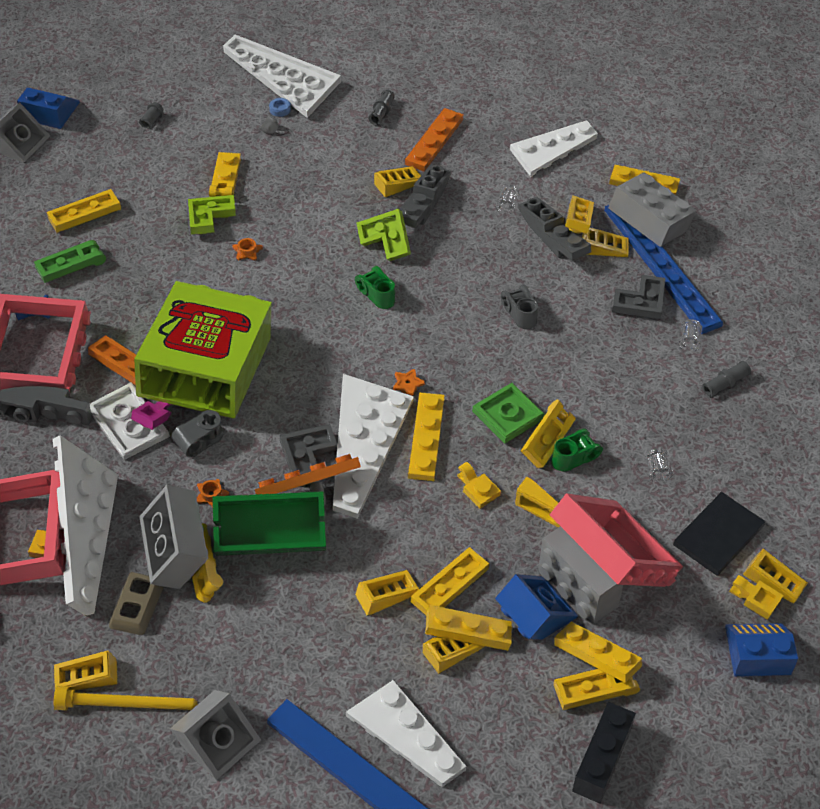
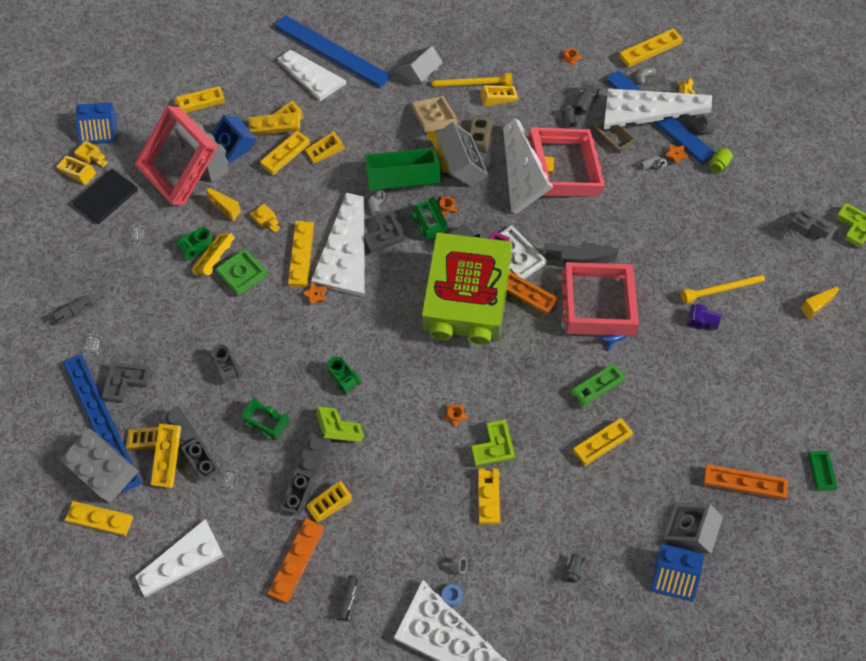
camera: 175 degrees right, 10 degrees up
(202, 627) = (434, 113): none -> tan tile
(241, 462) = (429, 219): none -> green window
(318, 472) = (380, 202): orange plate -> none
(468, 248) = (264, 419): none -> green window
(598, 652) = (195, 111): yellow plate -> none
(603, 752) = (199, 63): black brick -> none

